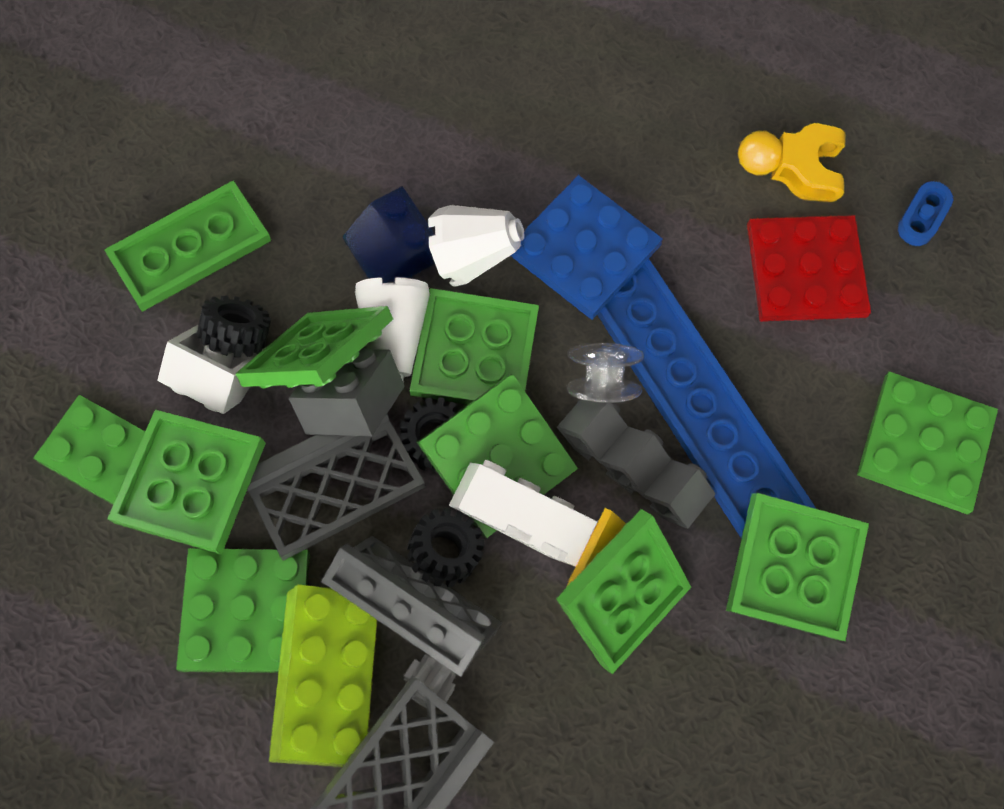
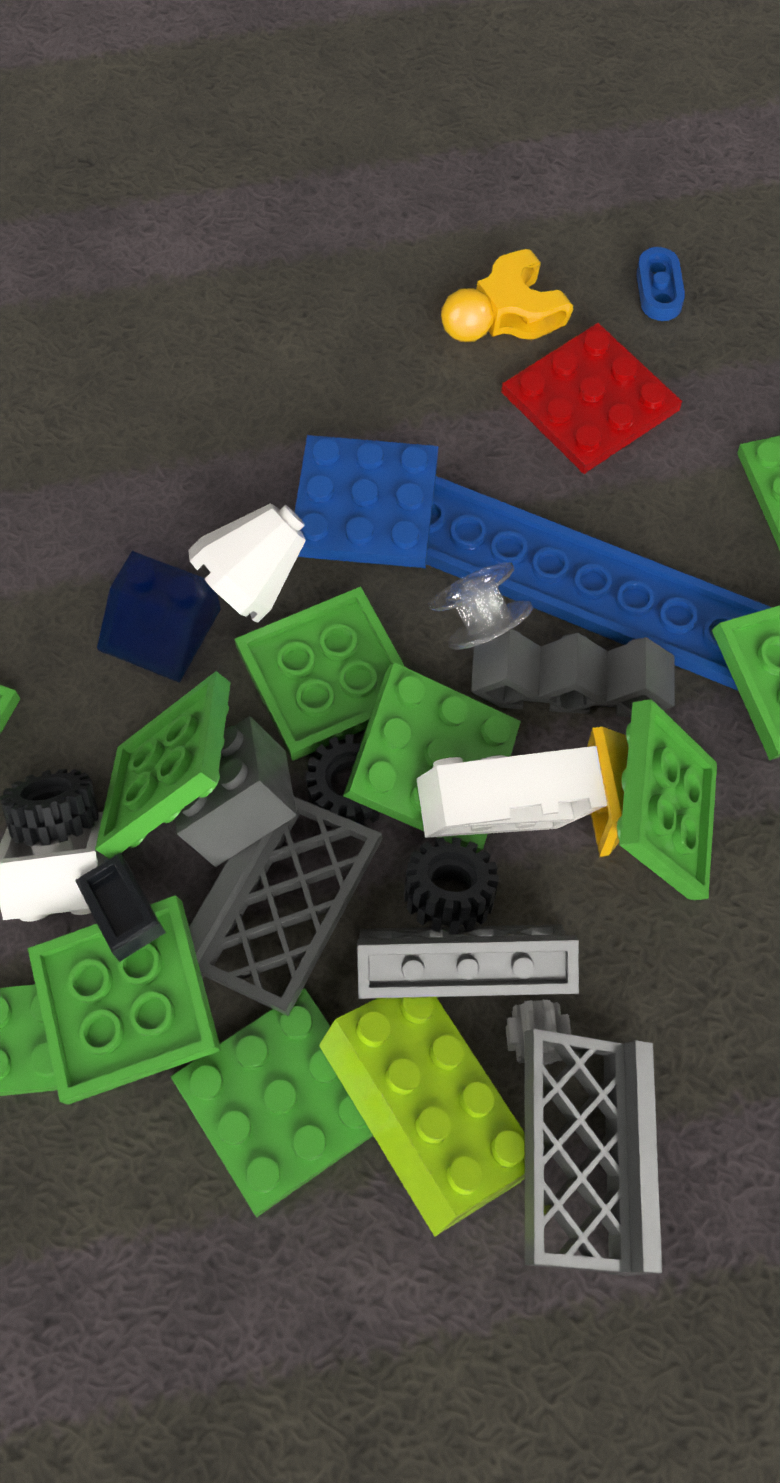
camera: 30 degrees left, 5 degrees down
(222, 421) = (120, 907): none -> black tile
(408, 304) = (229, 658): white cone -> none

